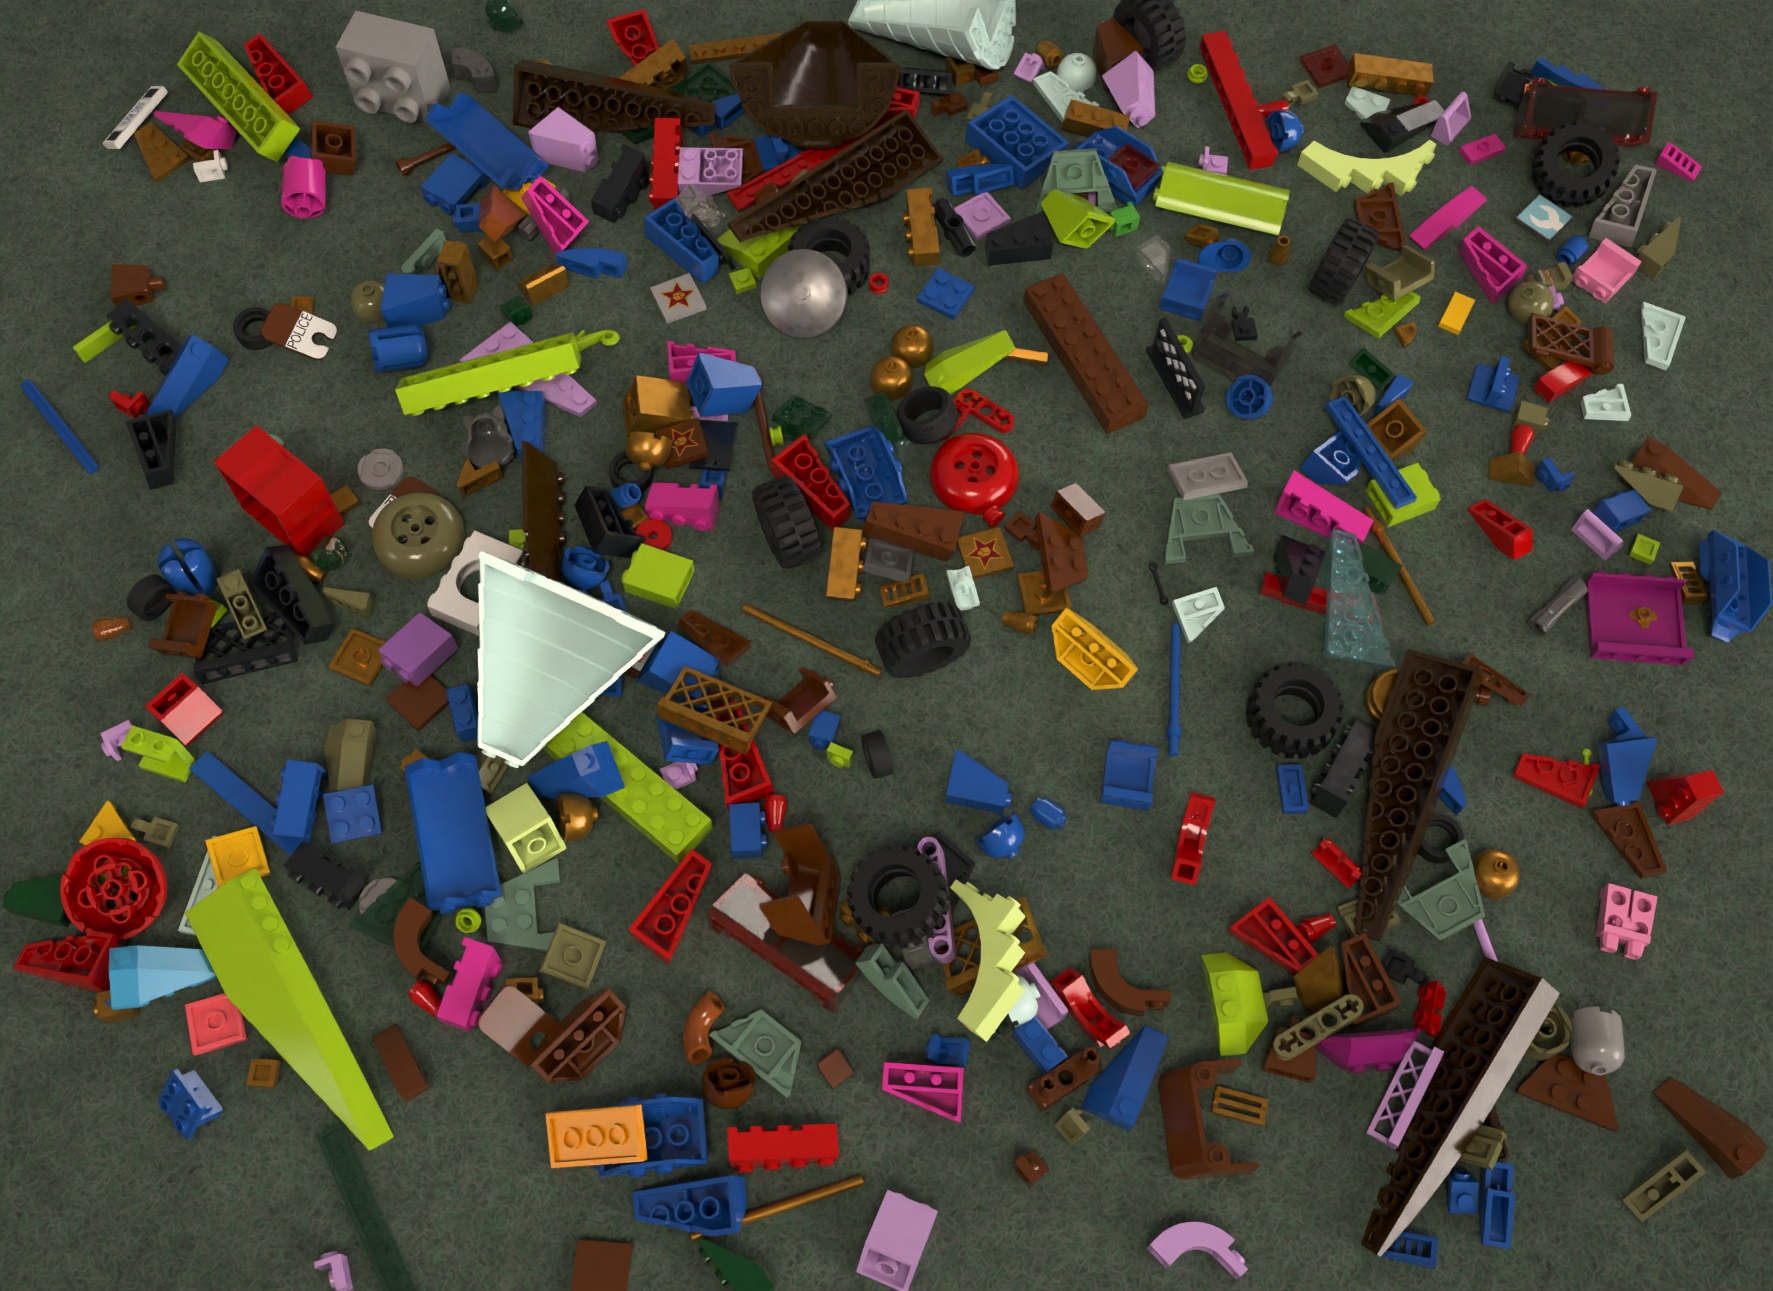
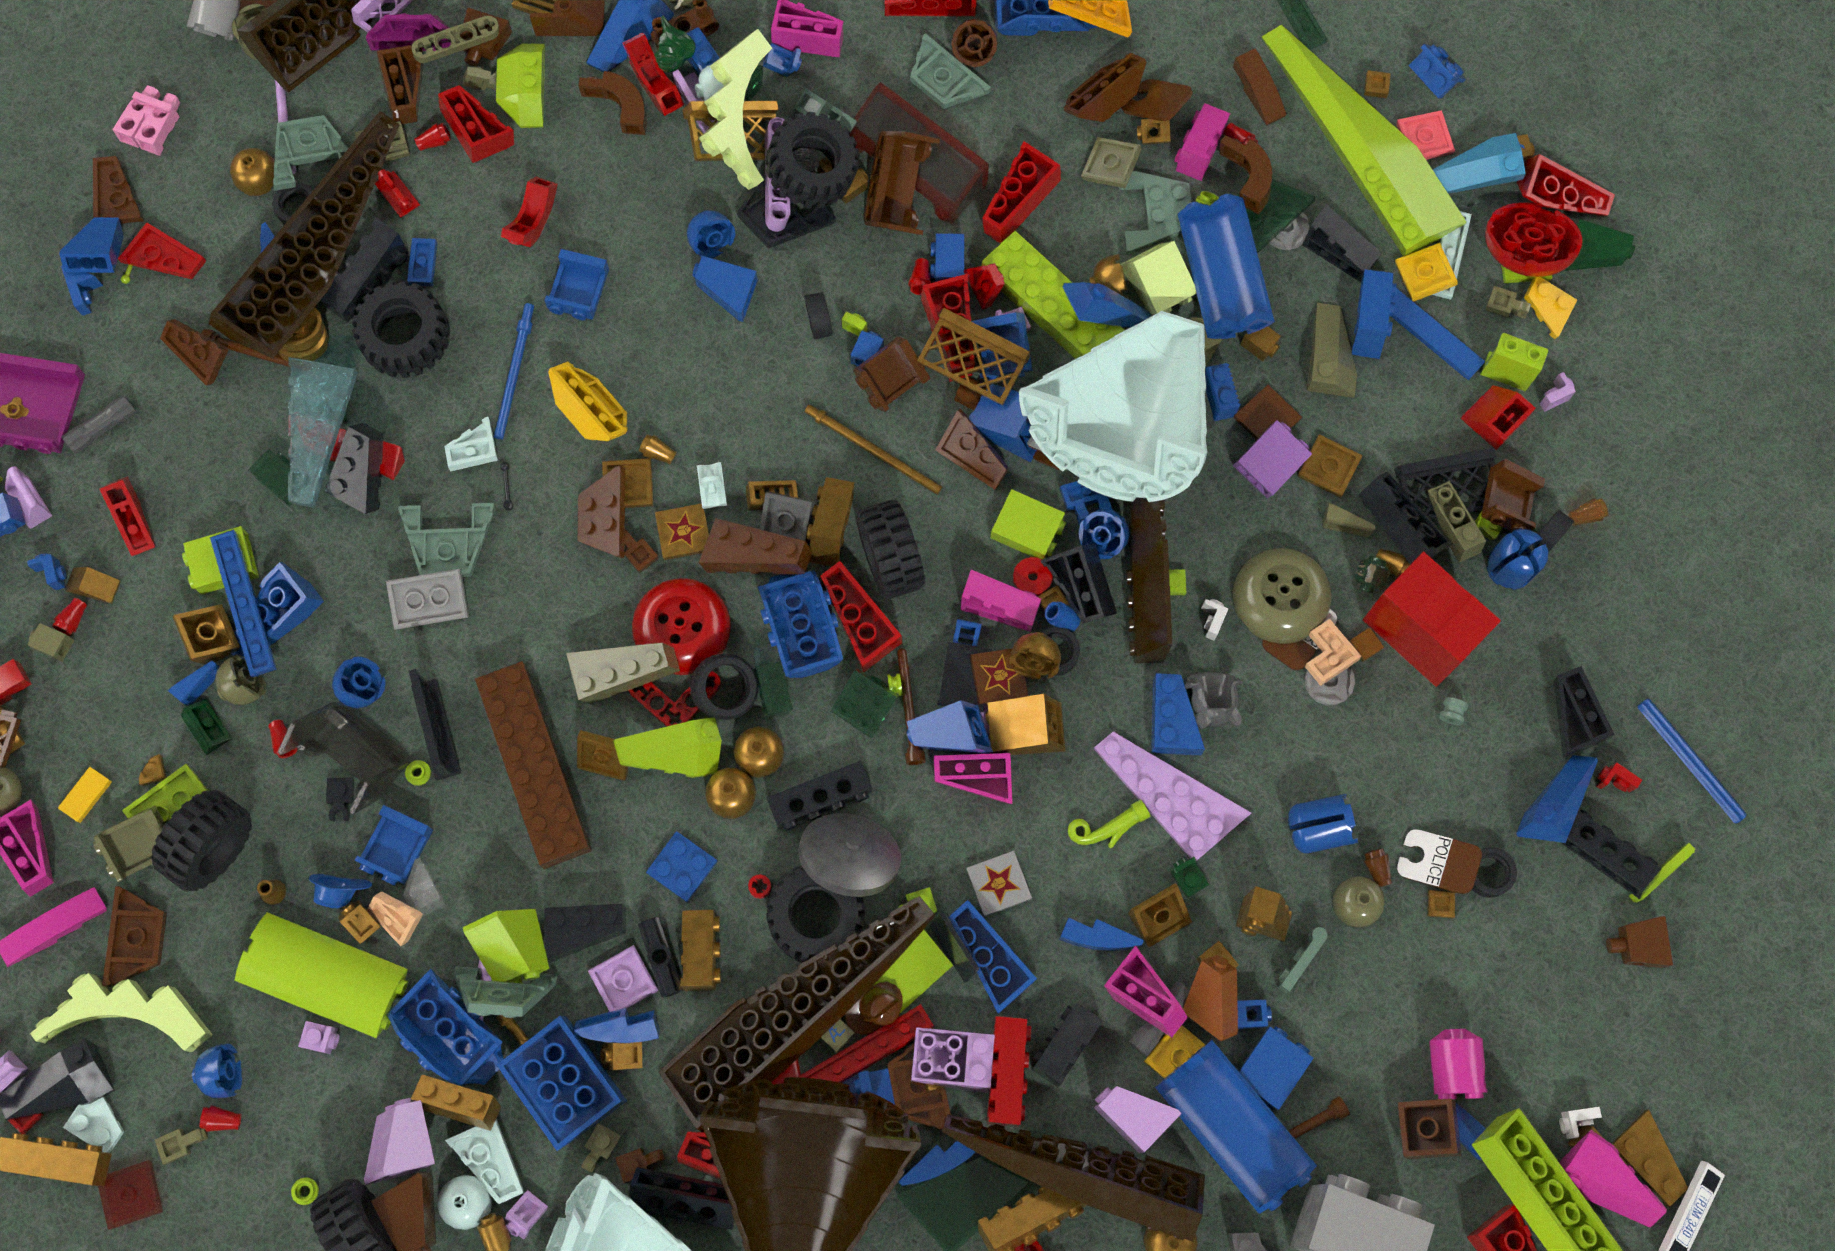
camera: 175 degrees left, 10 degrees up
(352, 328) = (1378, 866): none -> reddish brown cone
(353, 814) = (1322, 304): blue plate -> none
(371, 480) = (1336, 656): none -> light nougat plate
(414, 299) = (1312, 884): blue slope -> none
(447, 601) = (1214, 564): white arch -> none
(473, 481) = (1227, 653): pearl gold slope -> none
(482, 508) = (1214, 622): none -> white bracket
(488, 374) = (1214, 765): lime brick -> none
(698, 1027) = (999, 97): dark orange cylinder -> none
(702, 205) = (967, 996): clear brick -> none
(704, 798) = (985, 283): none -> red wing
(834, 347) = (852, 774): none -> black brick
(834, 1068) = (883, 58): reddish brown slope -> none
(922, 639) = (760, 408): black tyre -> none
(993, 516) = (667, 569): red bush -> none
(1021, 421) = (617, 670): none -> wedge
(1048, 813) = (660, 255): blue brick -> none
(1070, 1032) = (673, 47): none -> dark green hair
(1083, 512) = (575, 565): reddish brown brick -> none
(1126, 220) = (451, 953): bright green brick -> none
(1136, 165) = (425, 1014): clear red plate -> none
(1170, 237) = (394, 917): none -> light nougat wing
(1238, 100) = (263, 1139): red brick -> none
(1304, 360) = (278, 732): none -> red cone
(1320, 510) = (313, 539): dark pink wedge -> none
(1320, 982) = (438, 79): pearl gold slope -> none
(1378, 528) = (258, 527): pearl gold bar -> none
(1400, 967) = (366, 96): black plate -> none
(1430, 998) = (353, 61): red hinge -> none
(1494, 386) = (76, 689): blue bracket -> none
(1684, 794) = (50, 210): red wedge -> none

